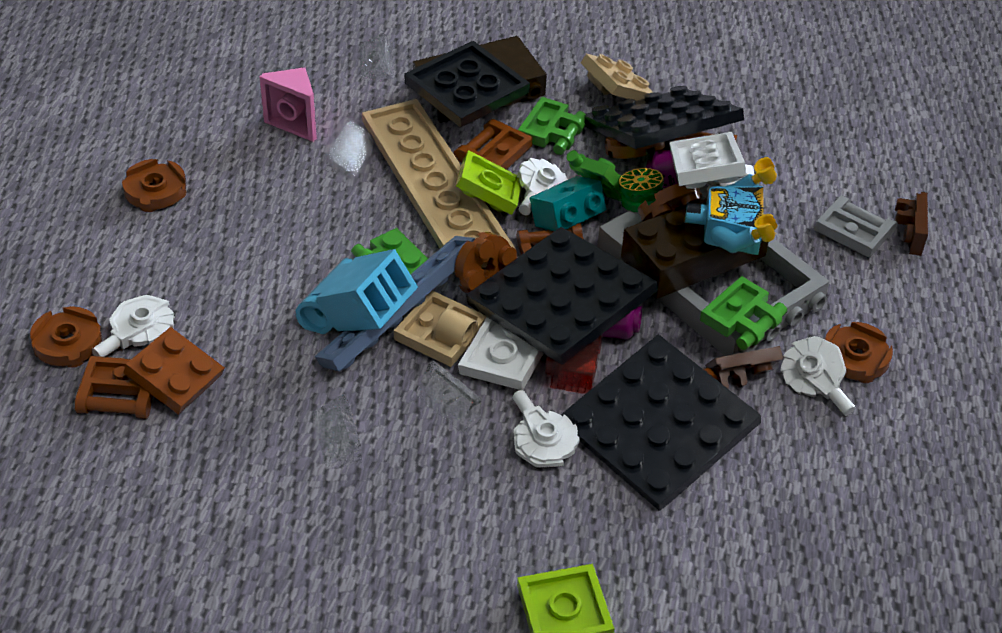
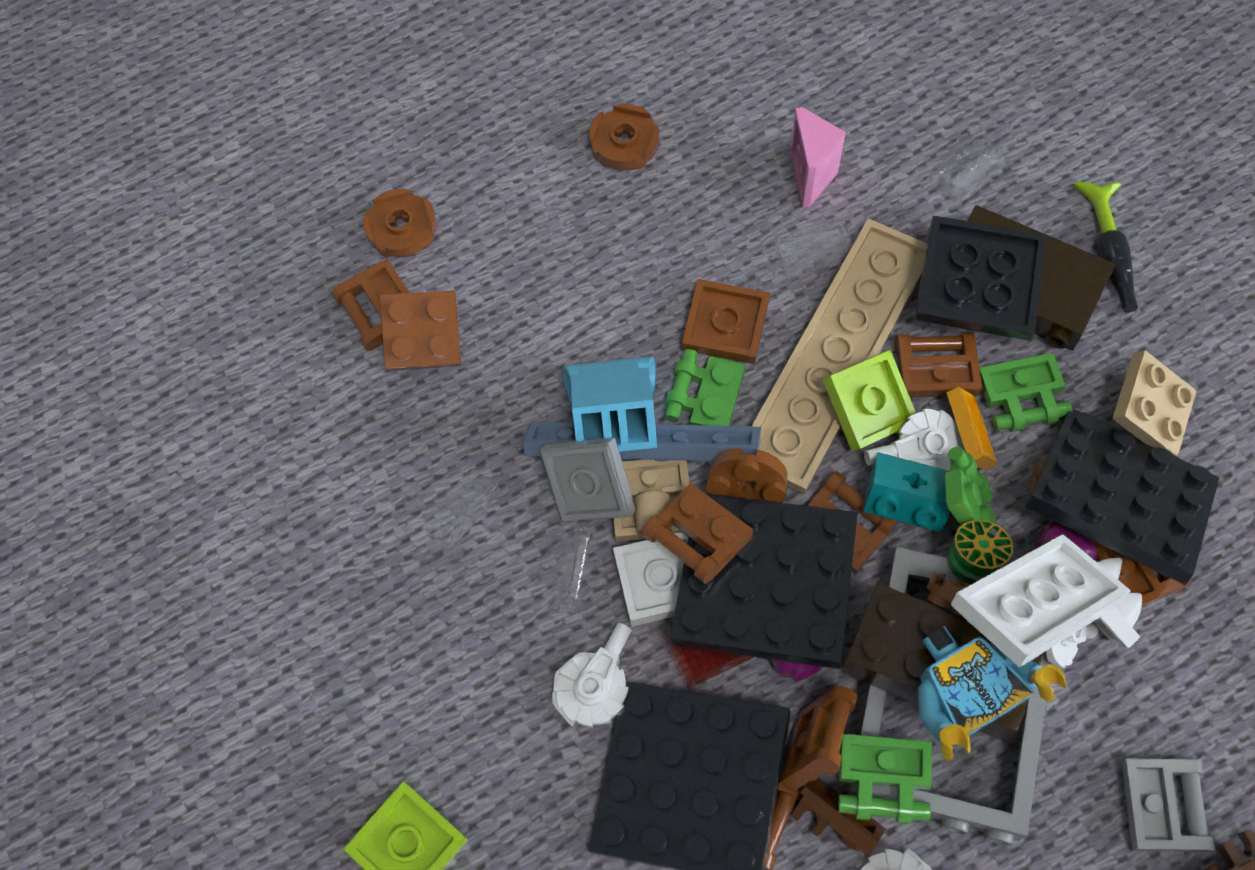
camera: 60 degrees right, 20 degrees up
(136, 324) = (454, 261): white piece -> none
(354, 218) = (726, 321): none -> dark orange plate
(402, 336) = (588, 479): none -> light grey tile
(492, 34) = (1112, 243): none -> black piece
(501, 297) = (706, 524): none -> dark orange plate
(552, 155) = (972, 427): none -> light orange tile
(691, 341) = (818, 738): none -> dark orange plate

